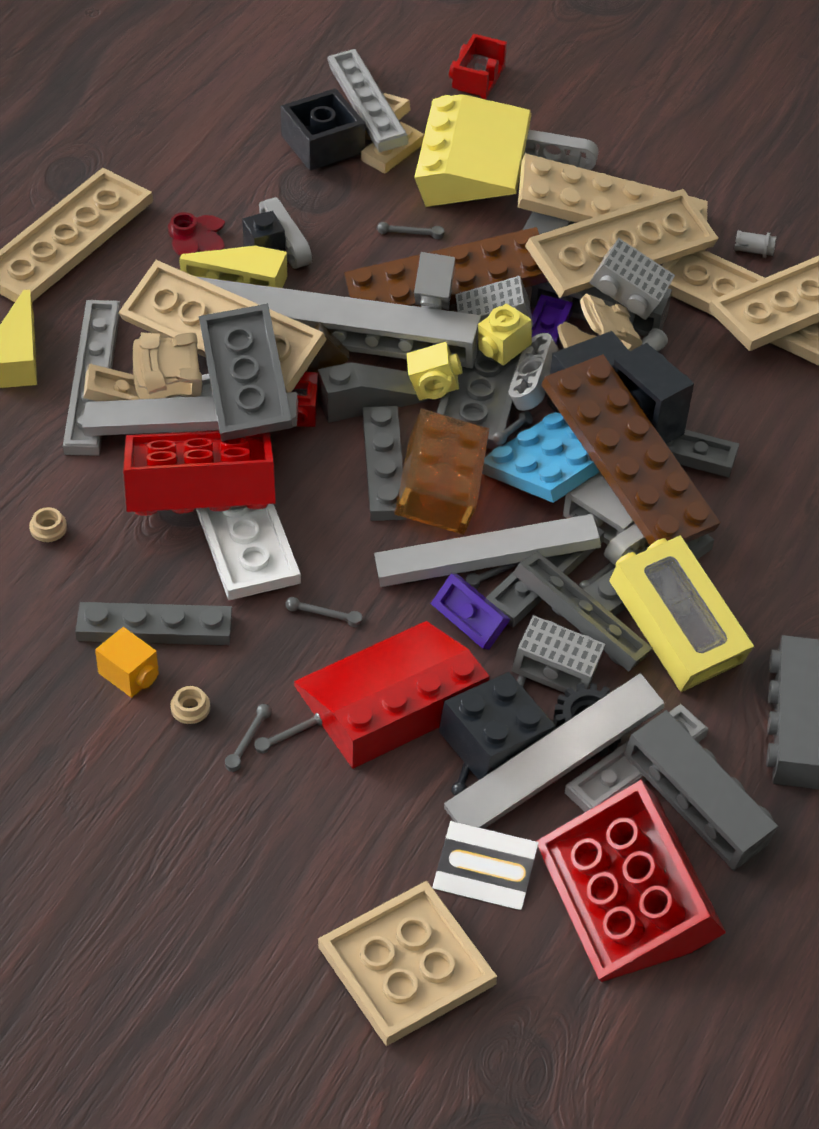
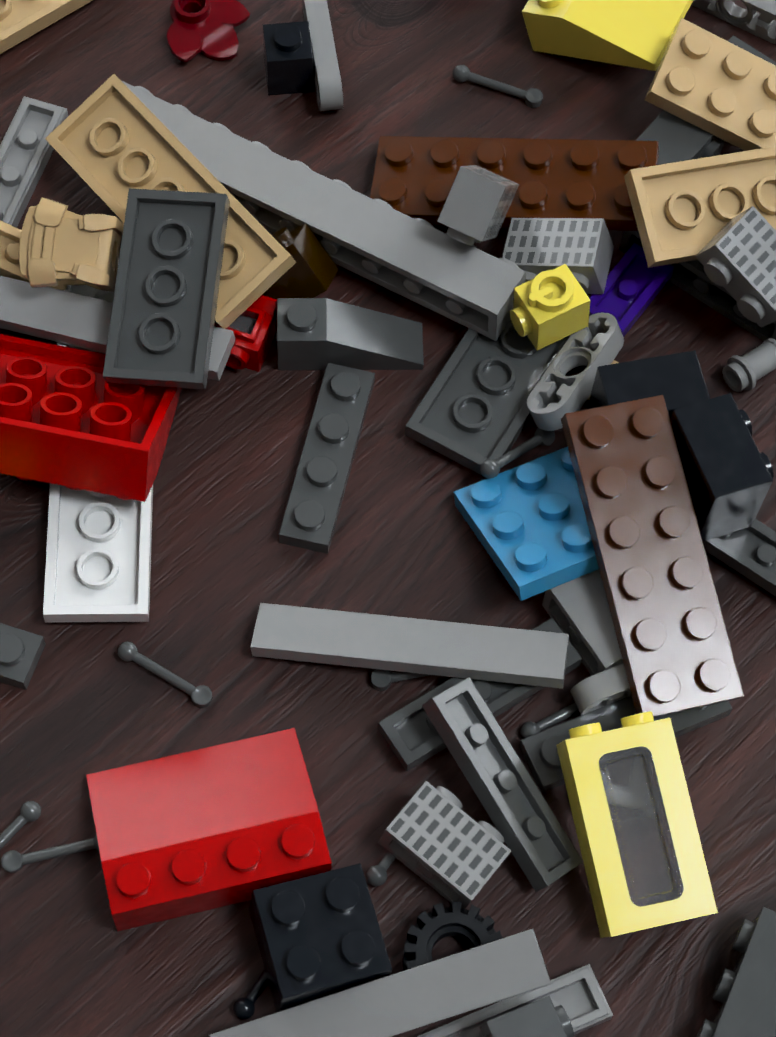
camera: 15 degrees right, 15 degrees up
(242, 264) = (243, 100): light yellow slope -> none
(434, 371) = (435, 338): light yellow brick -> none
(442, 471) = (392, 503): clear orange brick -> none
(470, 611) = (354, 735): dark purple plate -> none
(601, 320) = (690, 324): tan piece -> none

